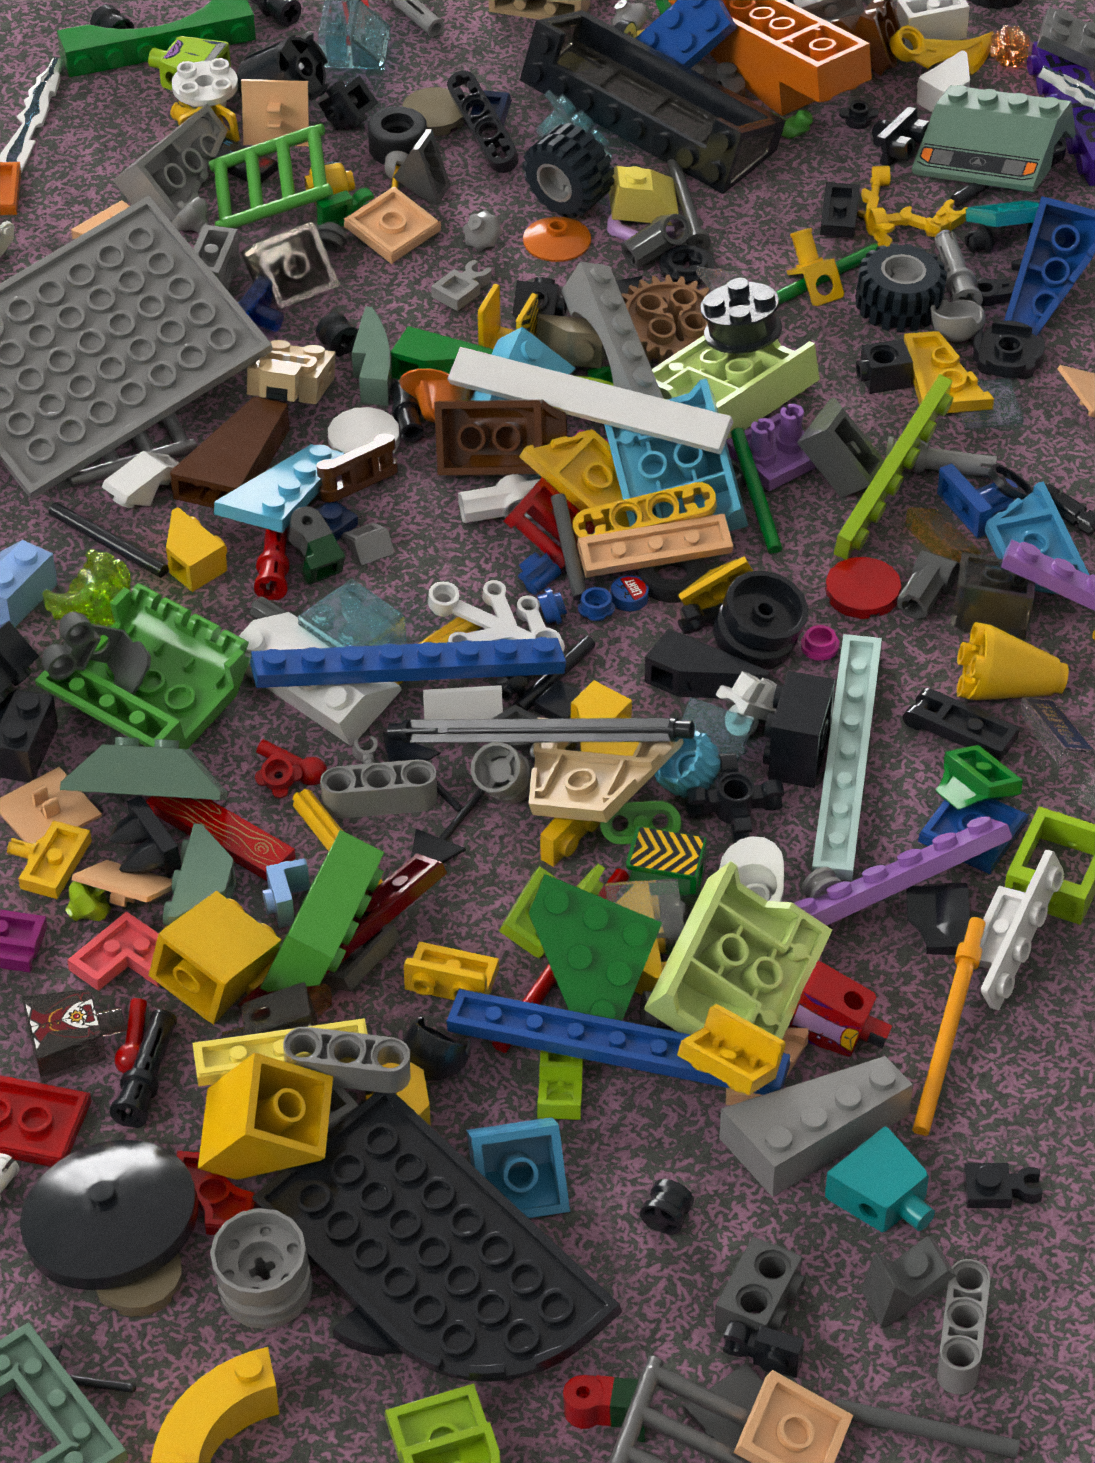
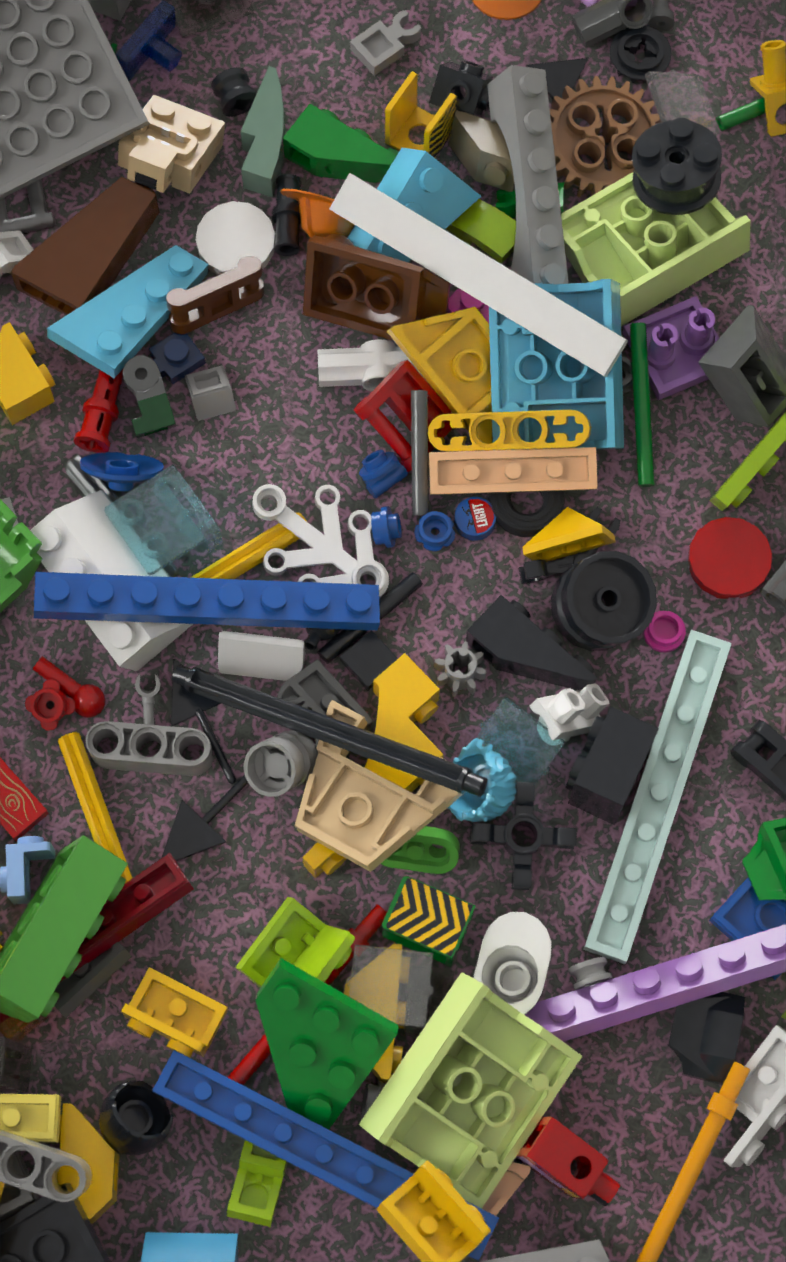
camera: 10 degrees right, 25 degrees up
(299, 597) = (121, 469): none -> blue dish
(646, 691) = (456, 679): none -> light grey gear

